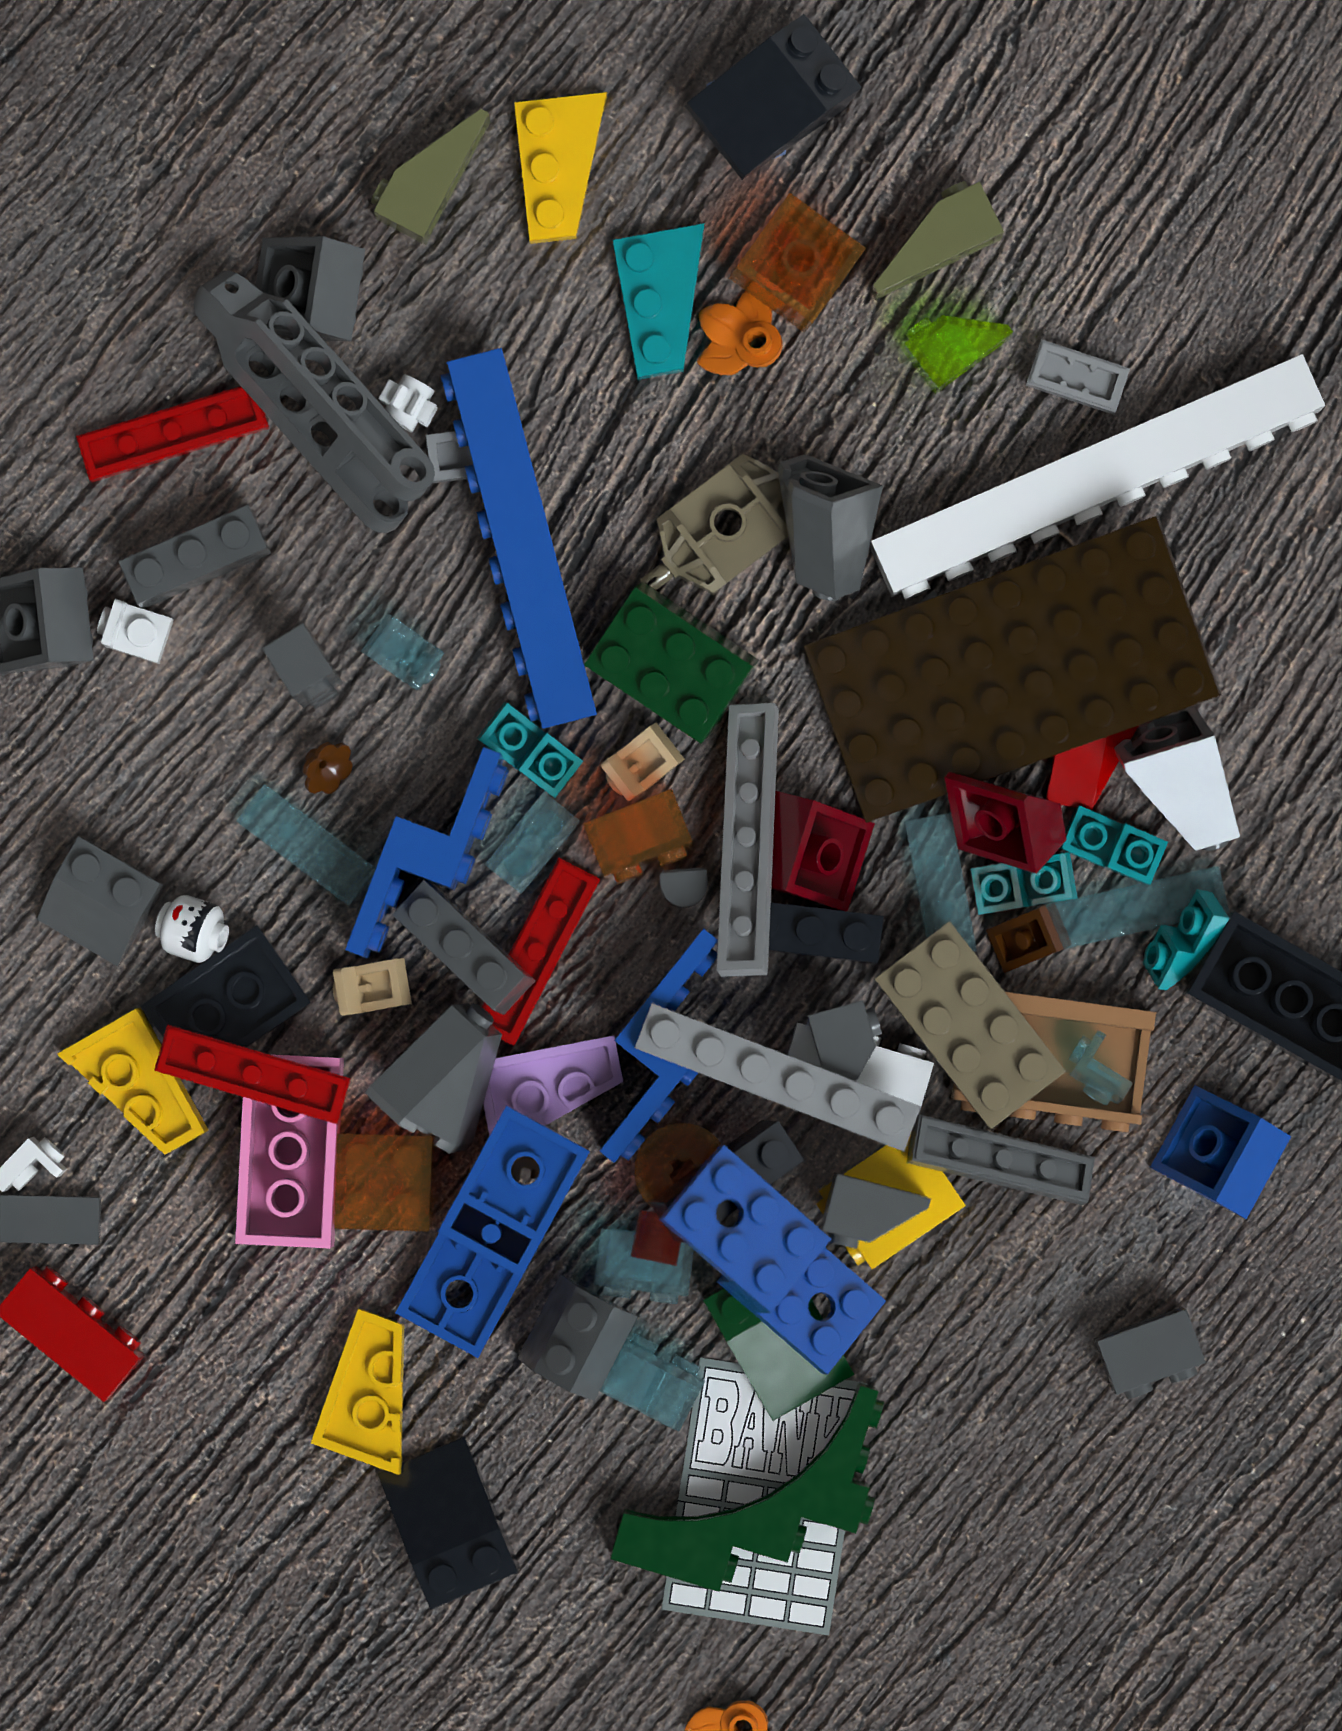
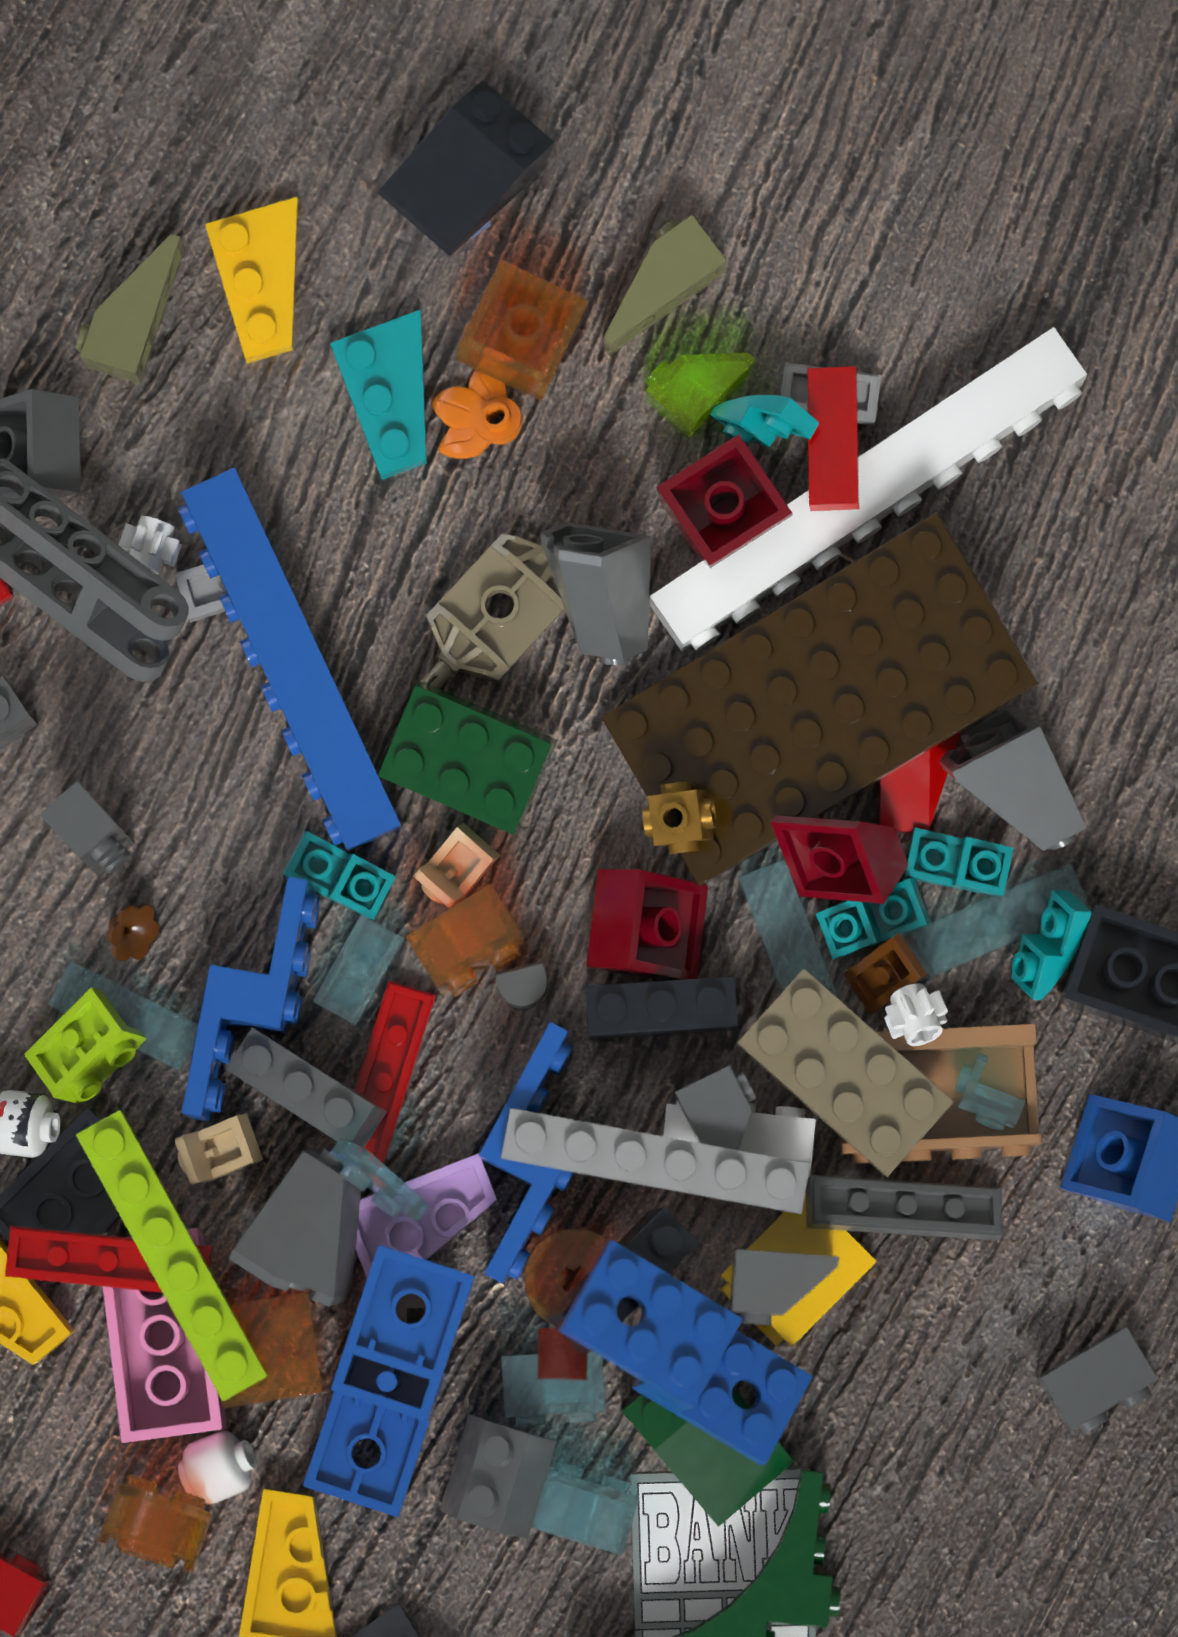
camera: 10 degrees left, 5 degrees down
(252, 1323) = (156, 1525): none -> clear orange brick
(262, 869) = (84, 1048): none -> lime bracket
(312, 1080) = (172, 1255): none -> lime plate
(318, 1281) = (217, 1467): none -> white head
(403, 652) = (190, 799): clear light blue bracket -> none
(506, 1035) = (366, 1171): none -> clear light blue plate
(748, 840) = (580, 925): light grey plate -> none
(876, 752) = (697, 822): none -> pearl gold brick
(957, 465) = (723, 502): none -> dark red slope
(1009, 392) = (763, 418): none -> teal slope
(1046, 984) = (916, 1014): none -> white gear
(1072, 423) = (834, 444): none -> red tile

